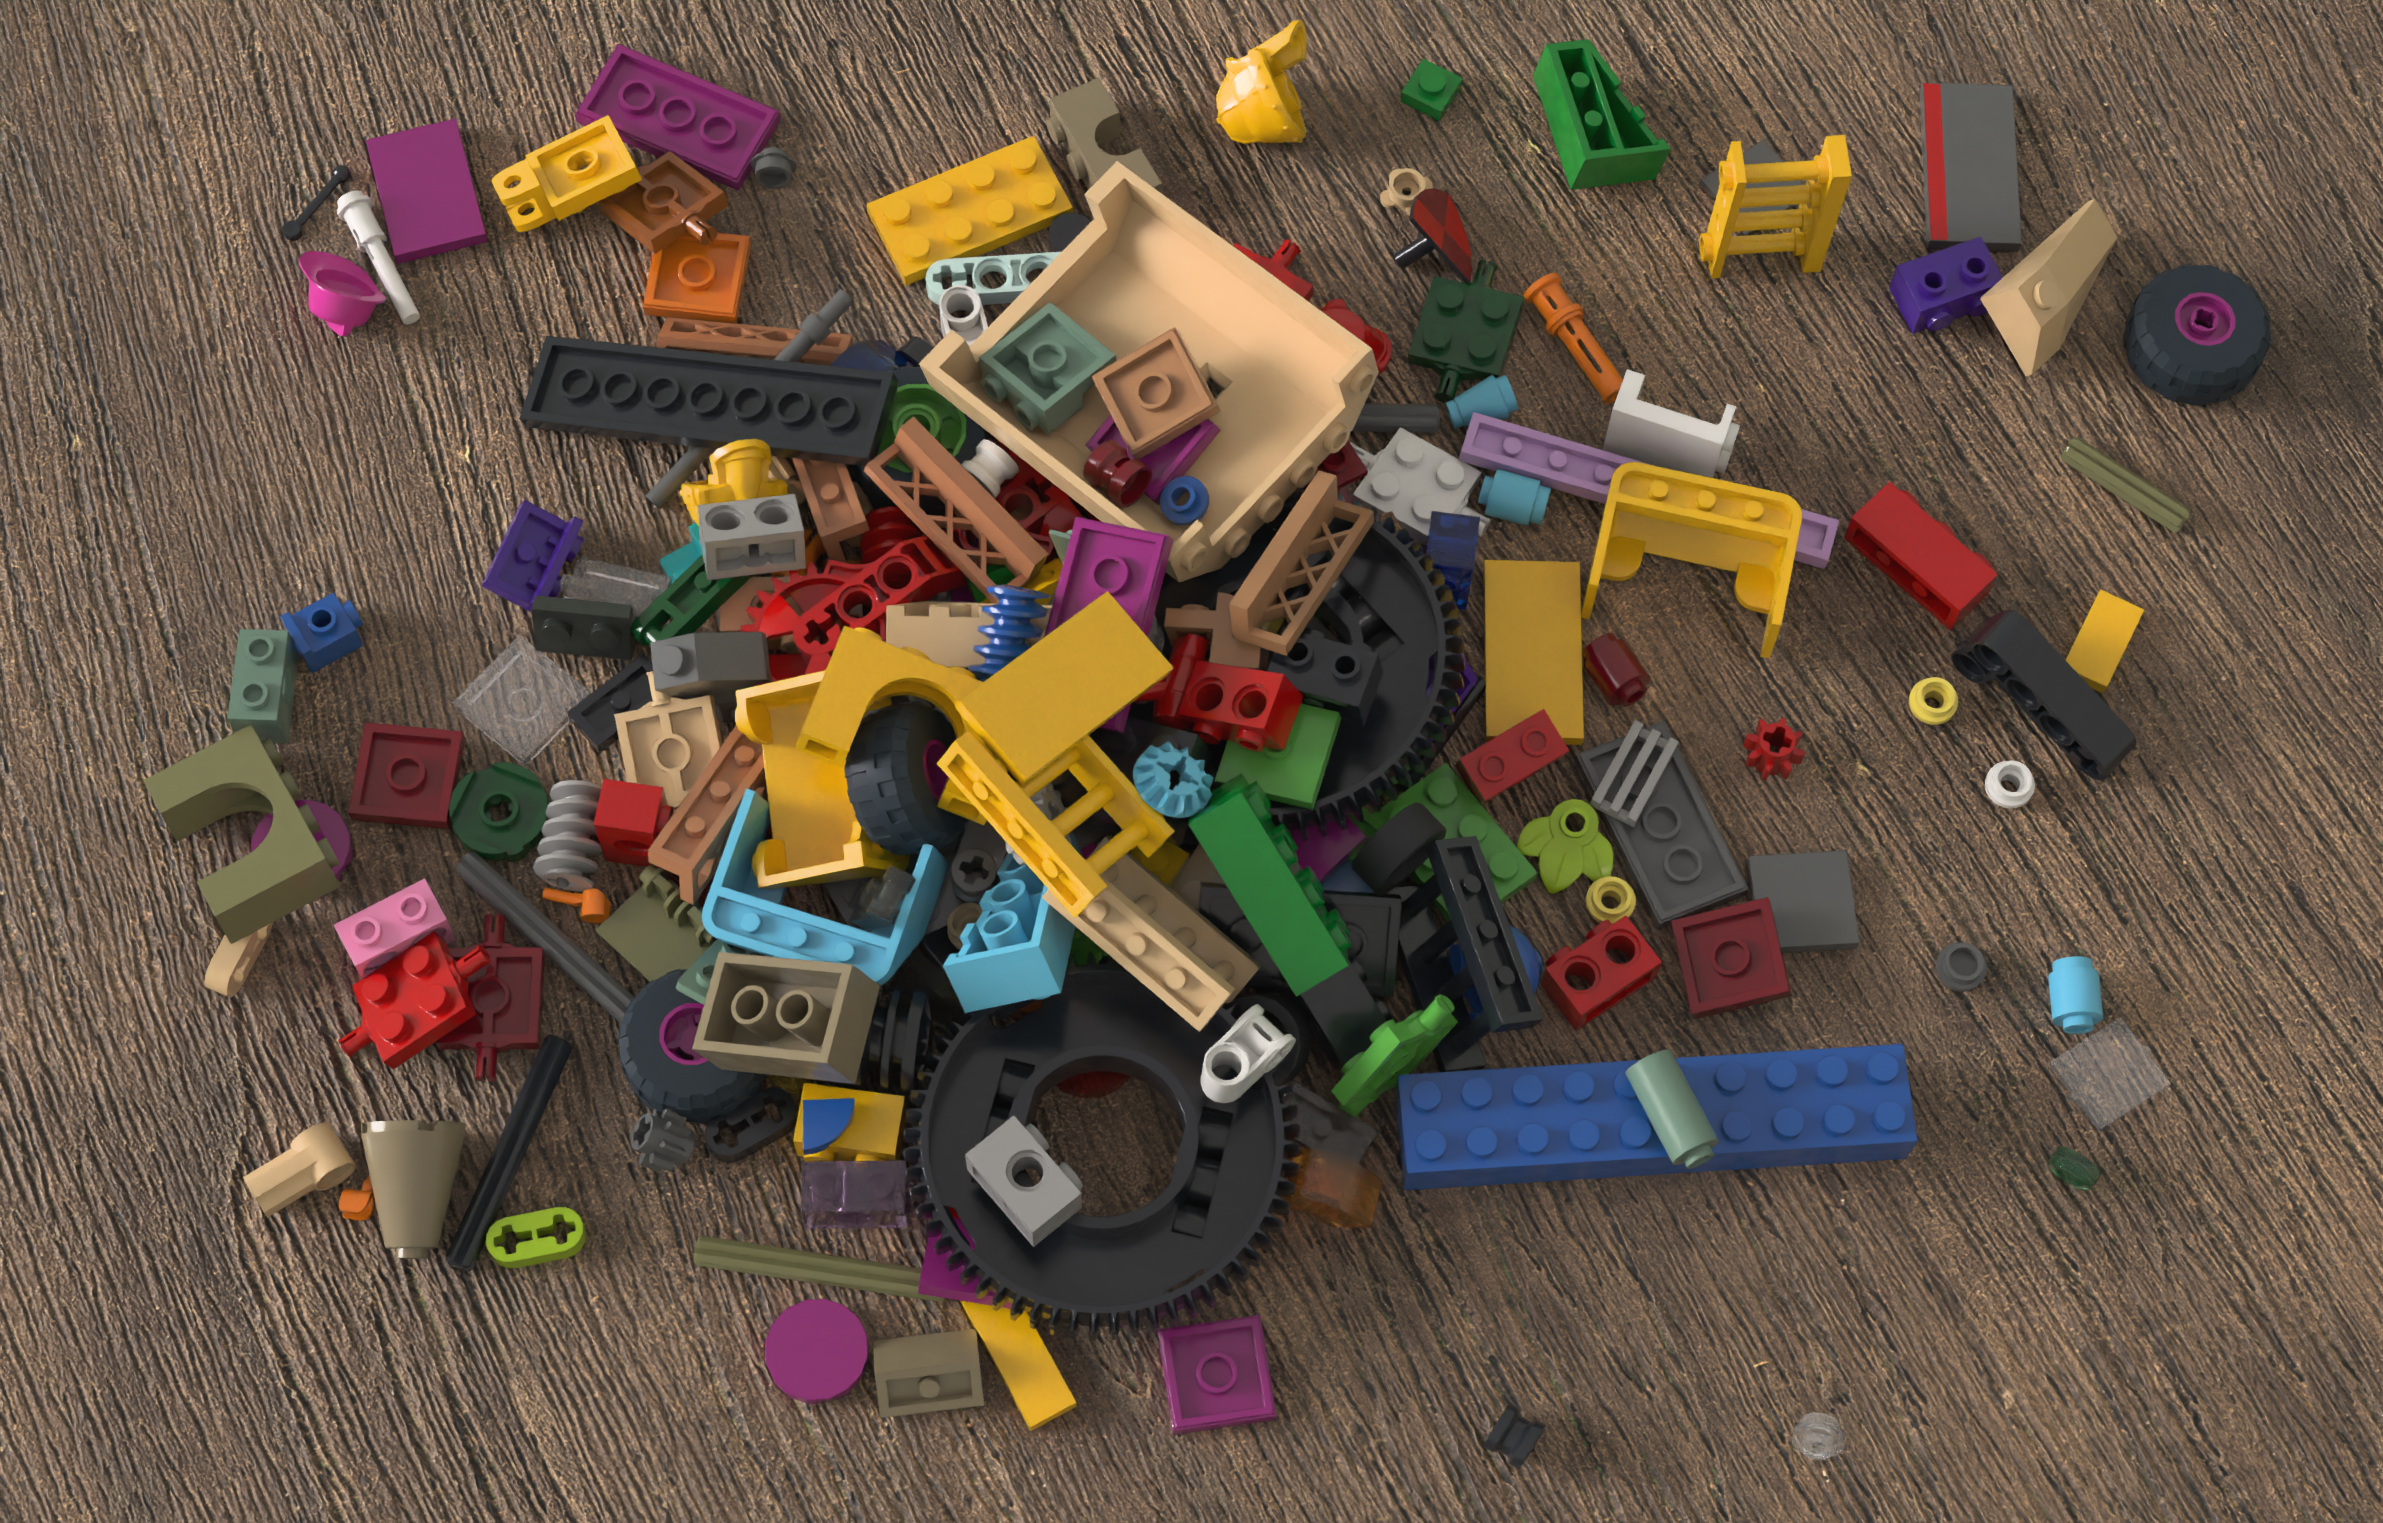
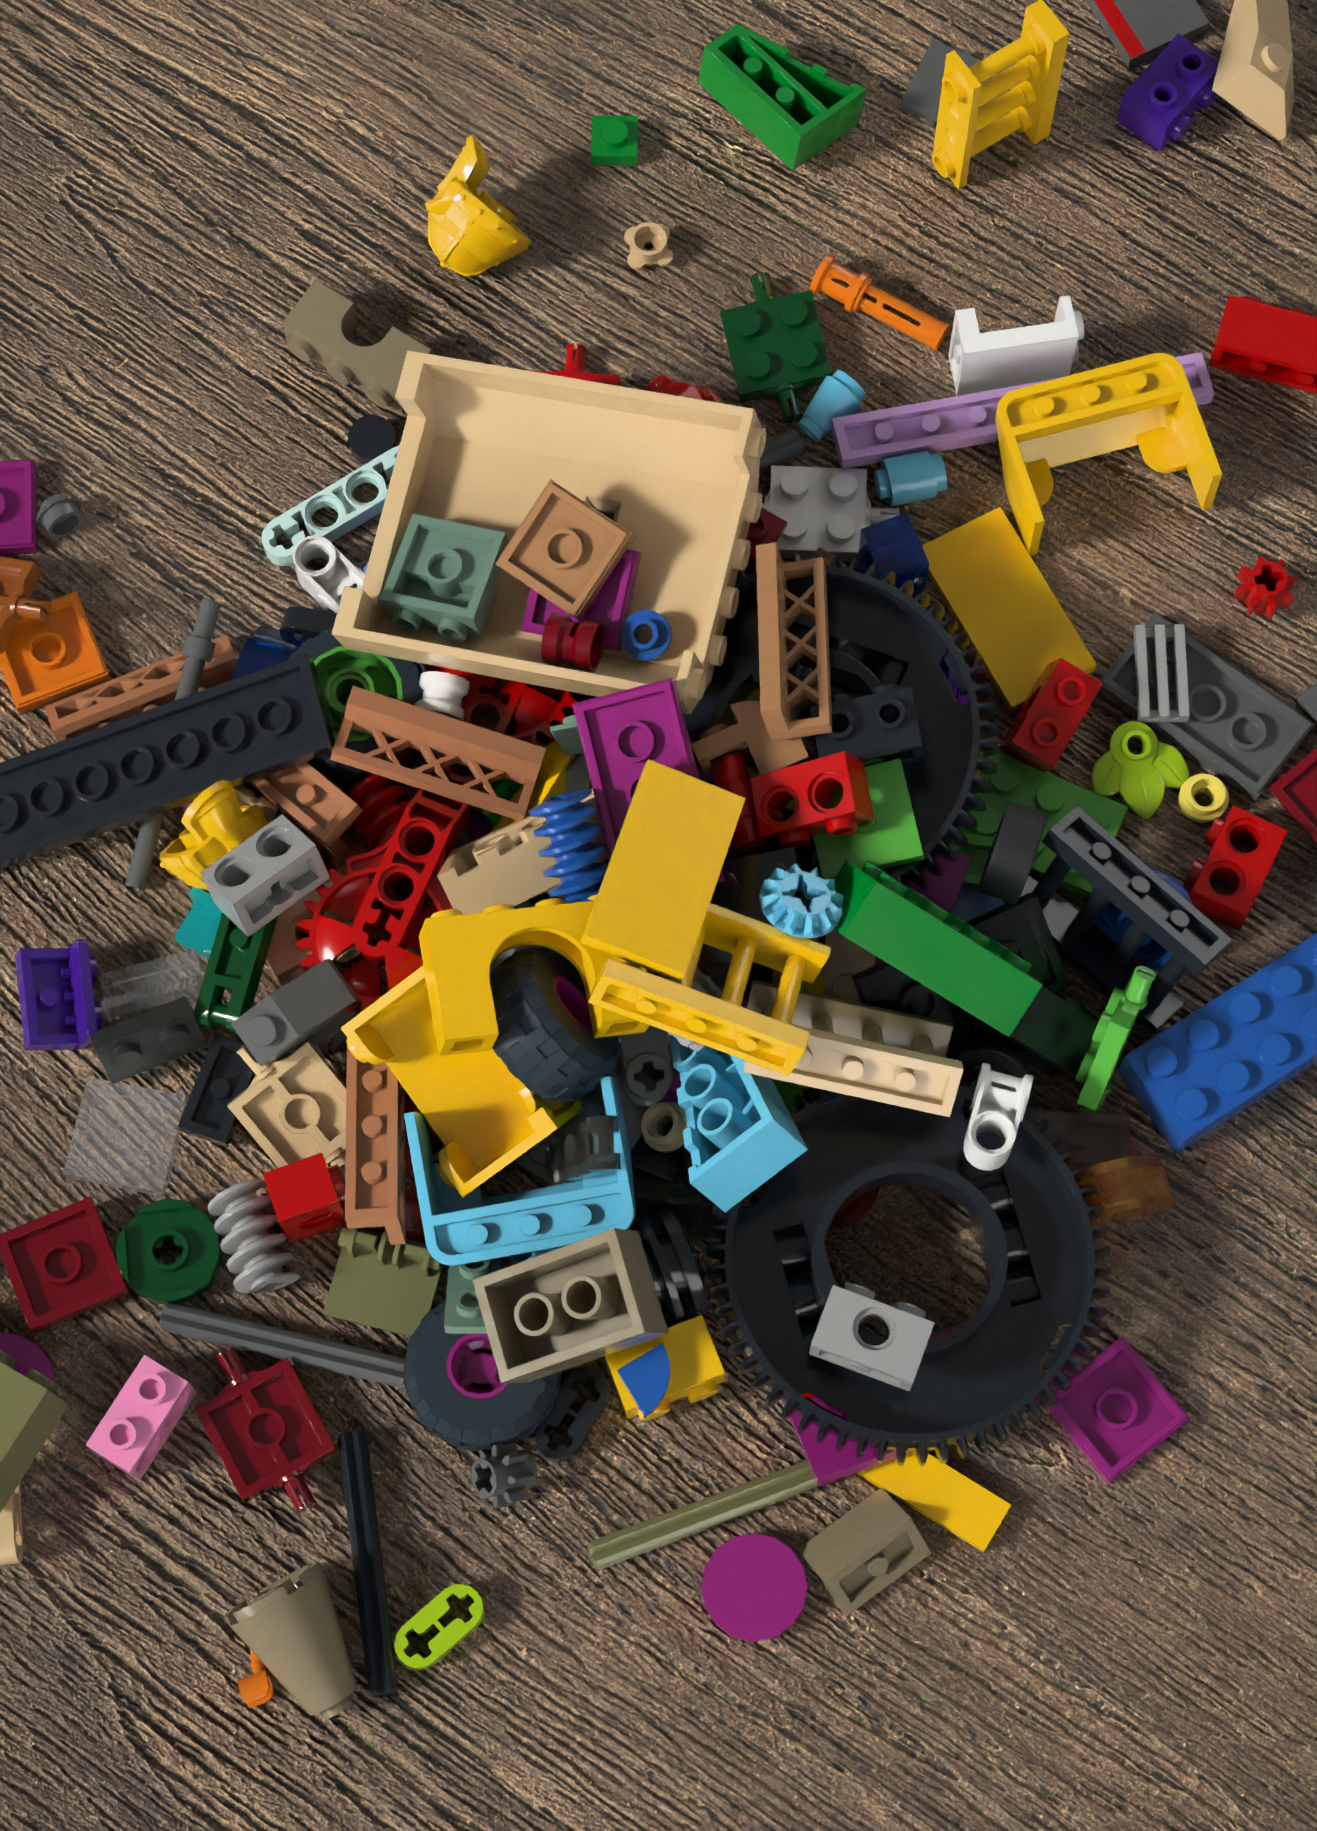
camera: 25 degrees left, 5 degrees up
(313, 1162) = (193, 1674): tan piece -> none
(414, 1000) = (199, 1472): red plate -> none
(593, 903) = (306, 1289): orange hand -> none
(854, 1194) = (707, 1427): clear purple brick -> none
(969, 209) = (263, 462): yellow plate -> none
(1438, 229) = (698, 268): shield -> none
(1615, 670) = (1089, 588): dark red brick -> none

